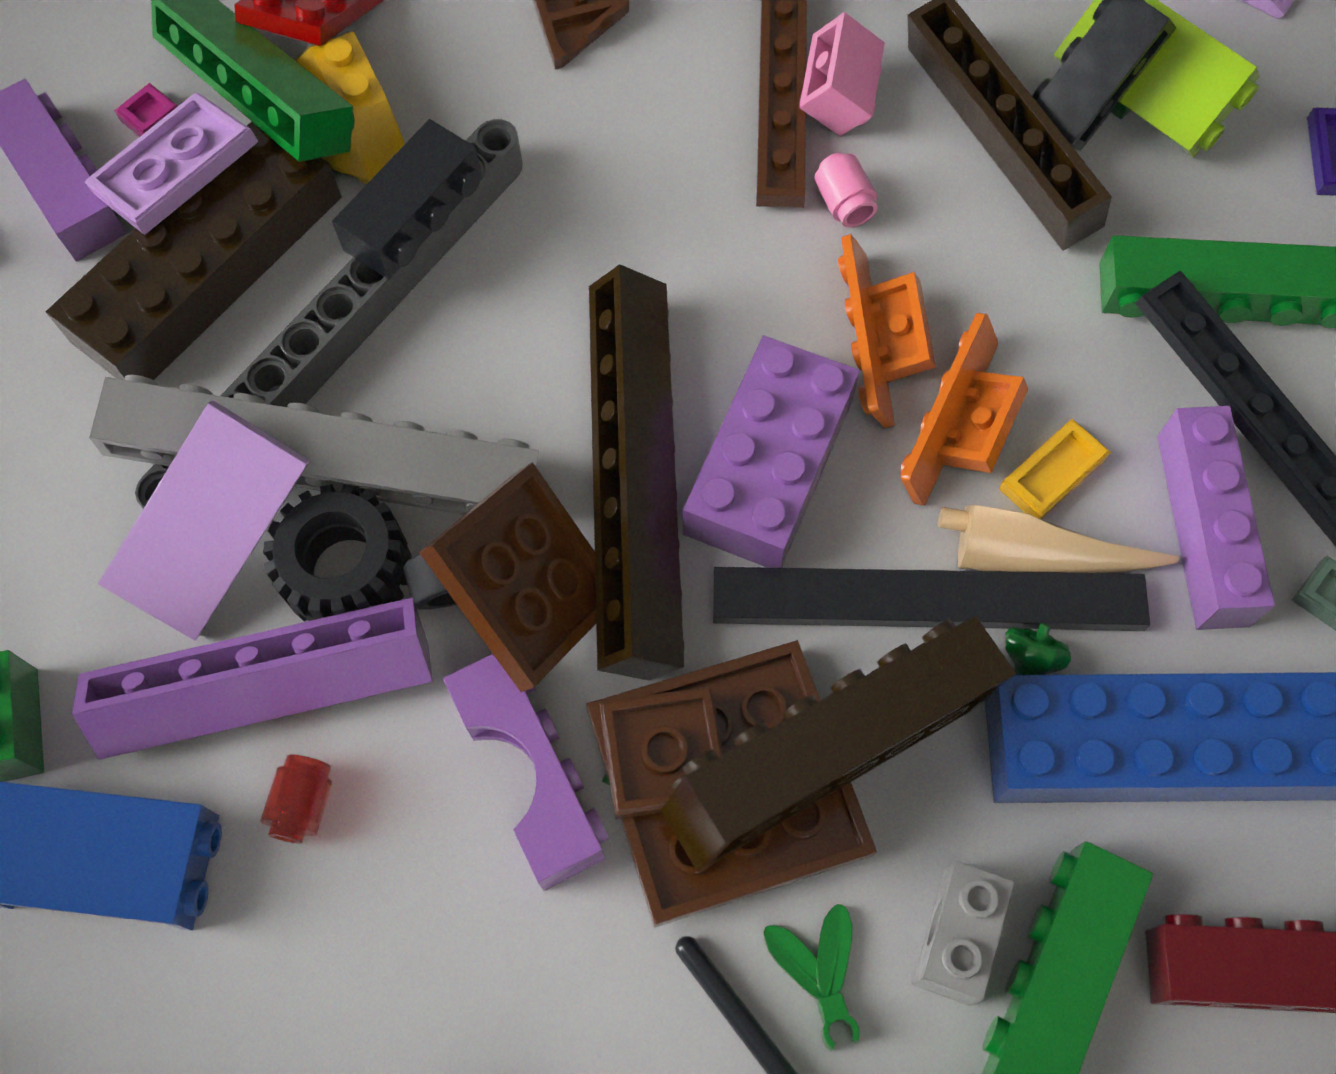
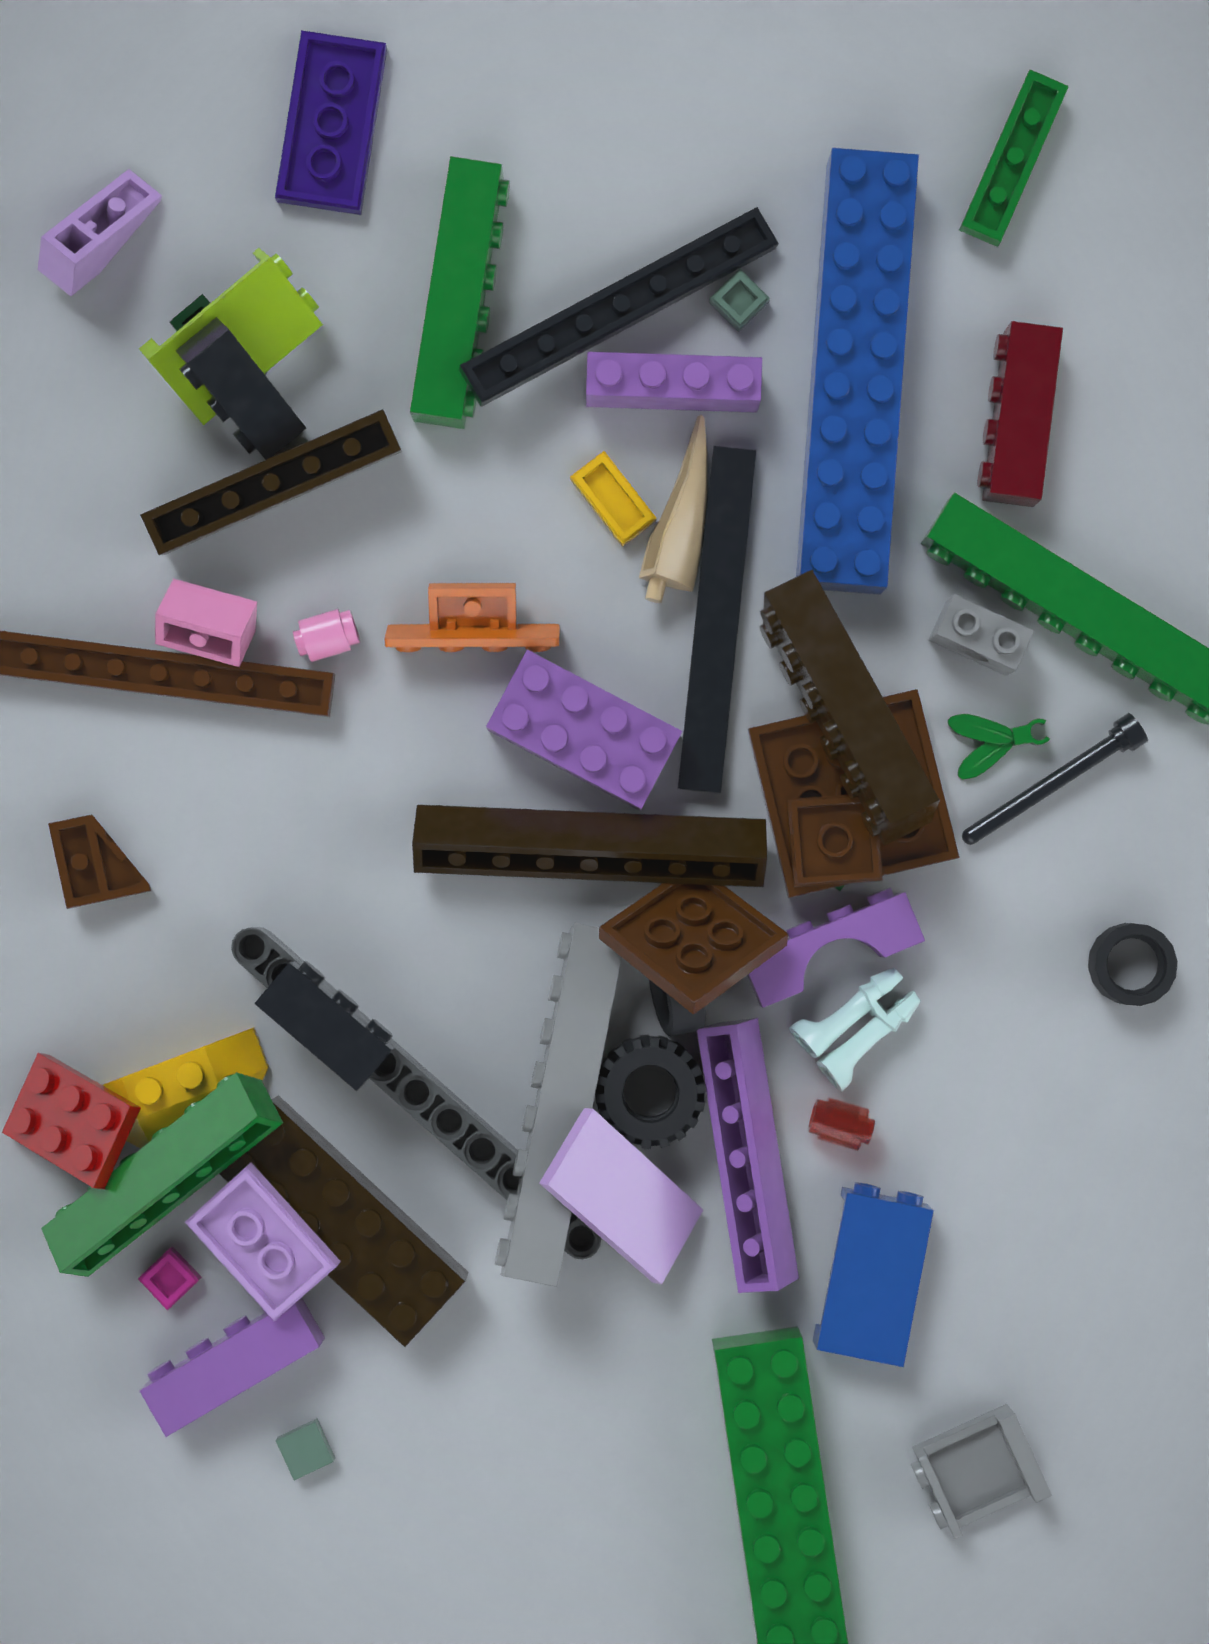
camera: 90 degrees left, 20 degrees up
(409, 757) = (818, 1036): none -> light aqua piece
(968, 416) = (562, 560): orange bracket -> none
(1036, 651) = (771, 543): green piece -> none

